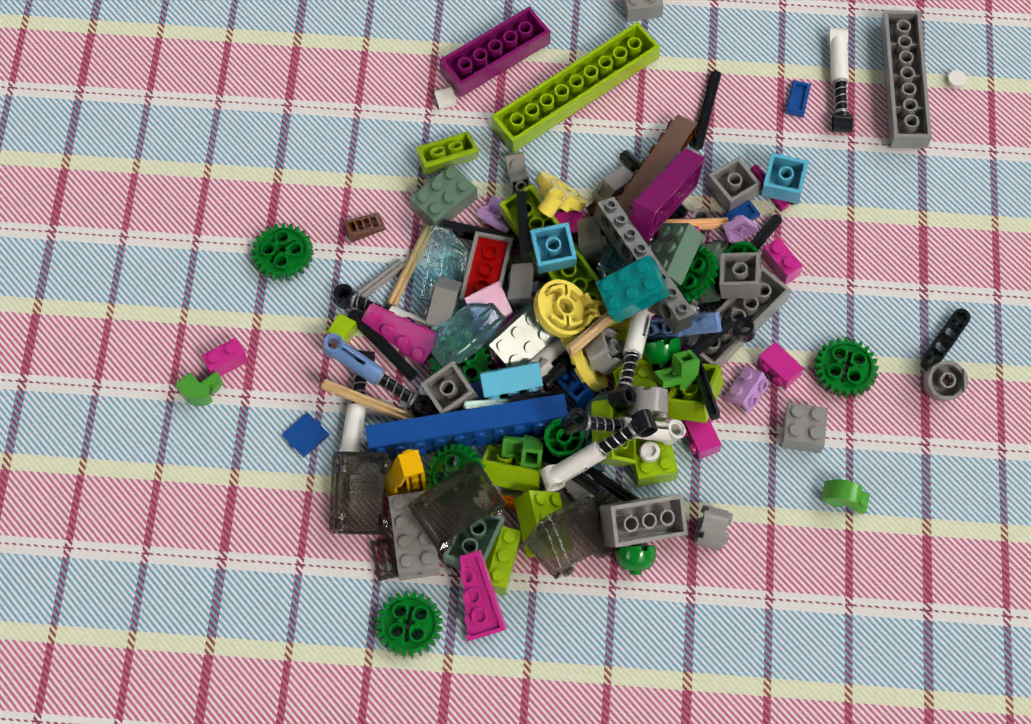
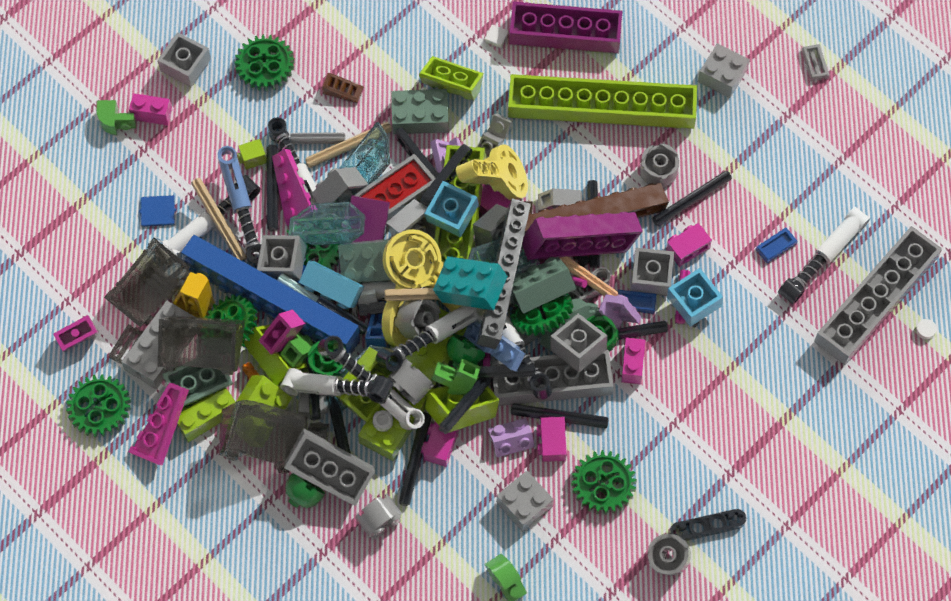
camera: 40 degrees right, 0 degrees up
(215, 298) = (184, 59): none -> light grey brick
(337, 582) = (75, 333): none -> dark pink brick
(510, 445) = (281, 331): none -> dark pink brick
(663, 102) = (659, 165): none -> light grey brick
(698, 472) = (414, 462): none -> black axle
(738, 144) = (689, 244): none -> dark pink brick
(759, 348) = (570, 417): none -> black axle

